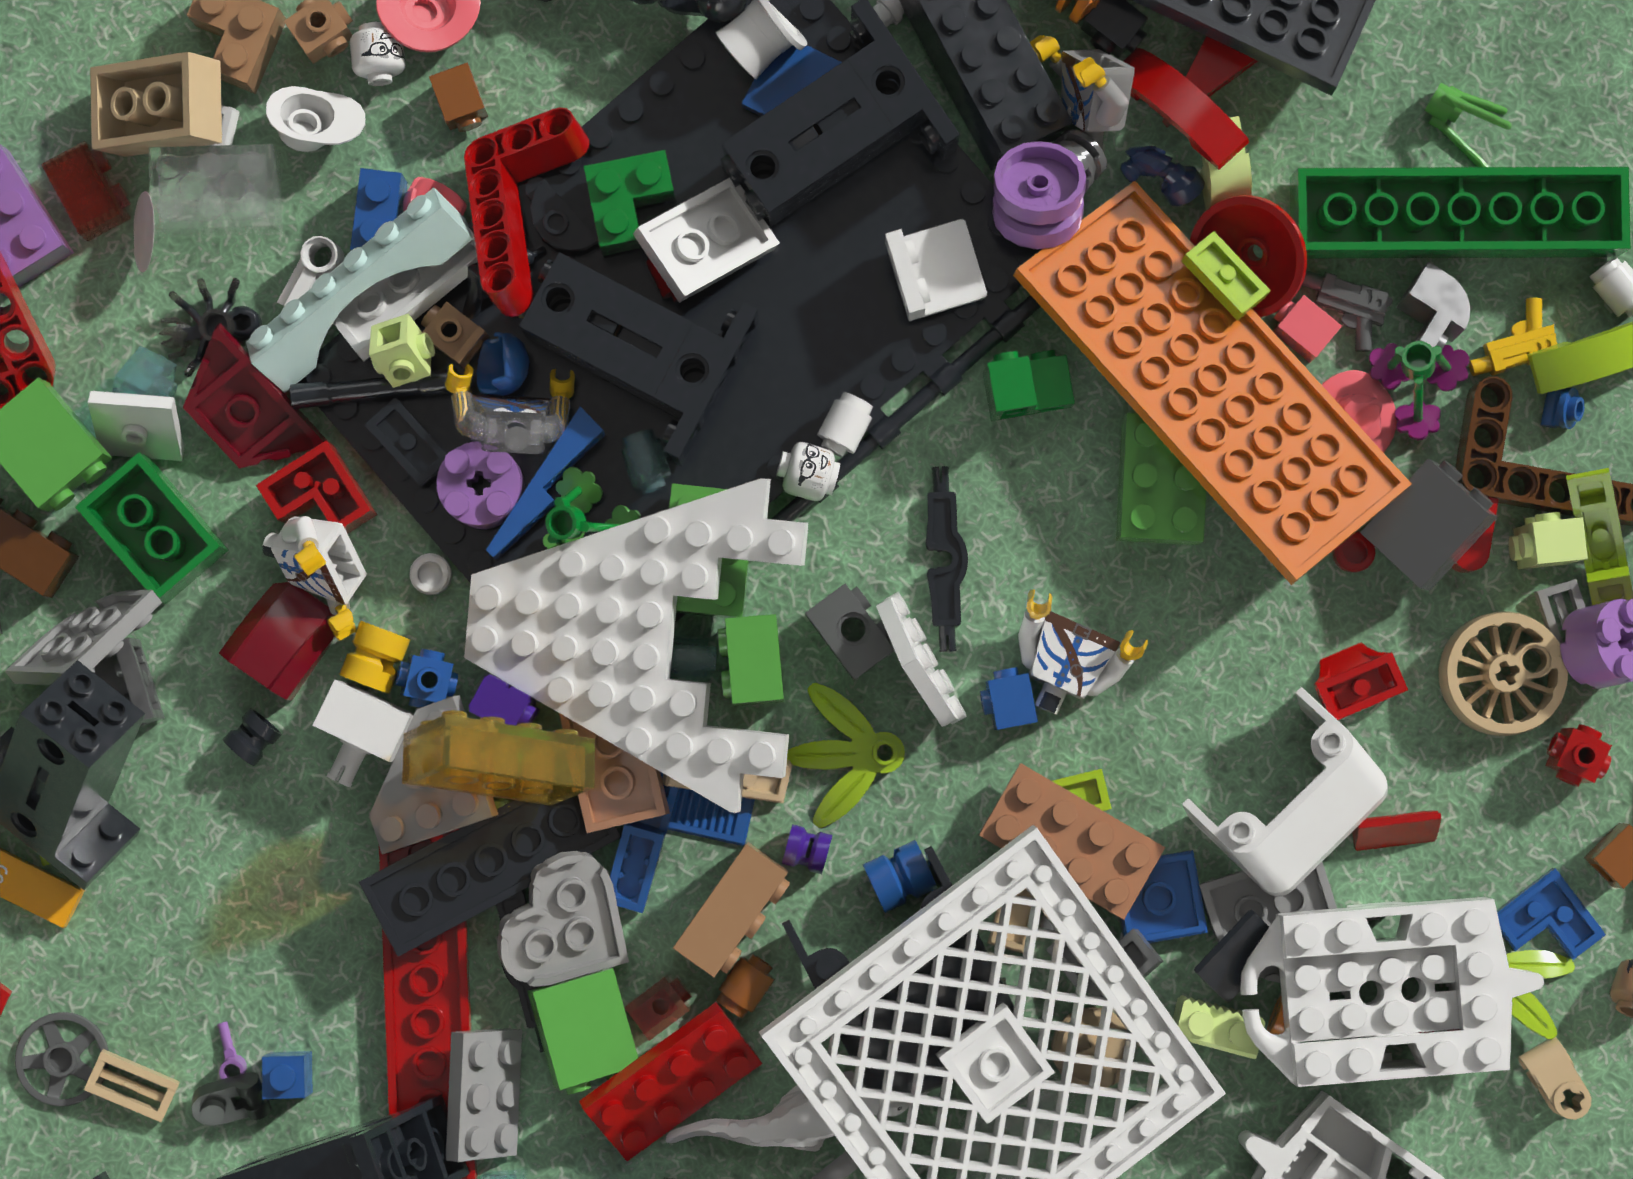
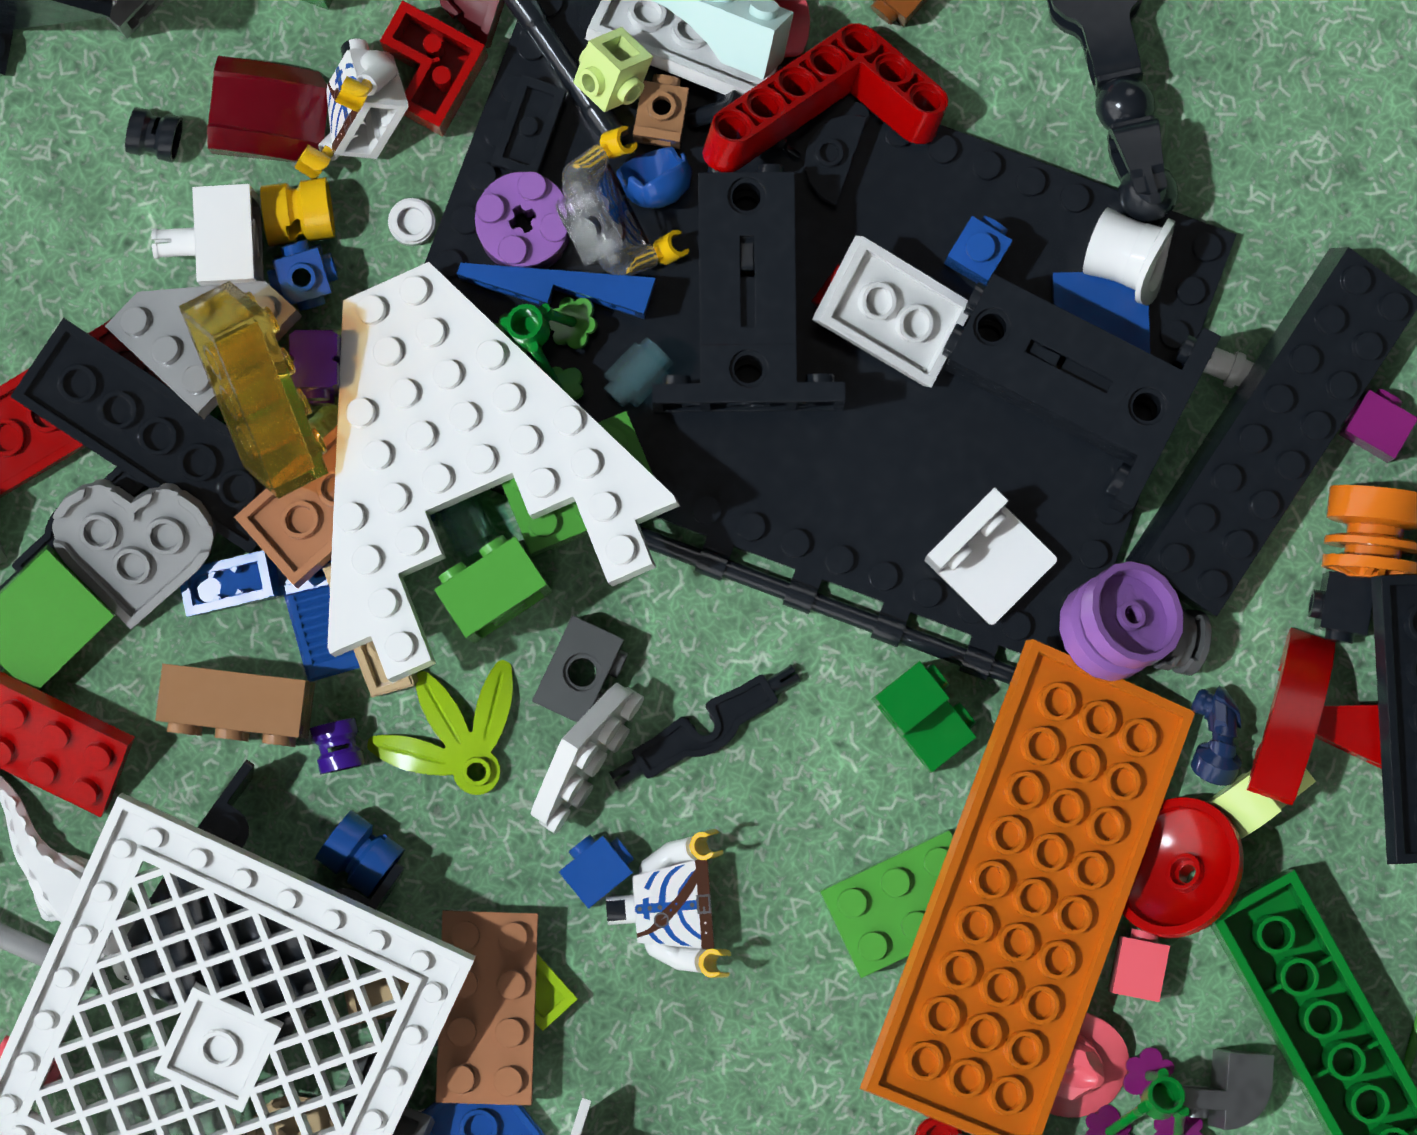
camera: 70 degrees right, 0 degrees up
(618, 189) = (897, 197): green brick -> none
(659, 1006) = (102, 683): clear red brick -> none
(694, 148) = (979, 249): none -> blue brick
(745, 985) = (168, 758): dark orange brick -> none
(808, 471) = (715, 541): white head -> none
(845, 424) = (782, 552): white brick -> none
(1093, 86) = (1264, 617): light grey torso -> none
(1225, 275) = (1144, 855): lime plate -> none
(1357, 303) = (1194, 1010): dark grey piece -> none

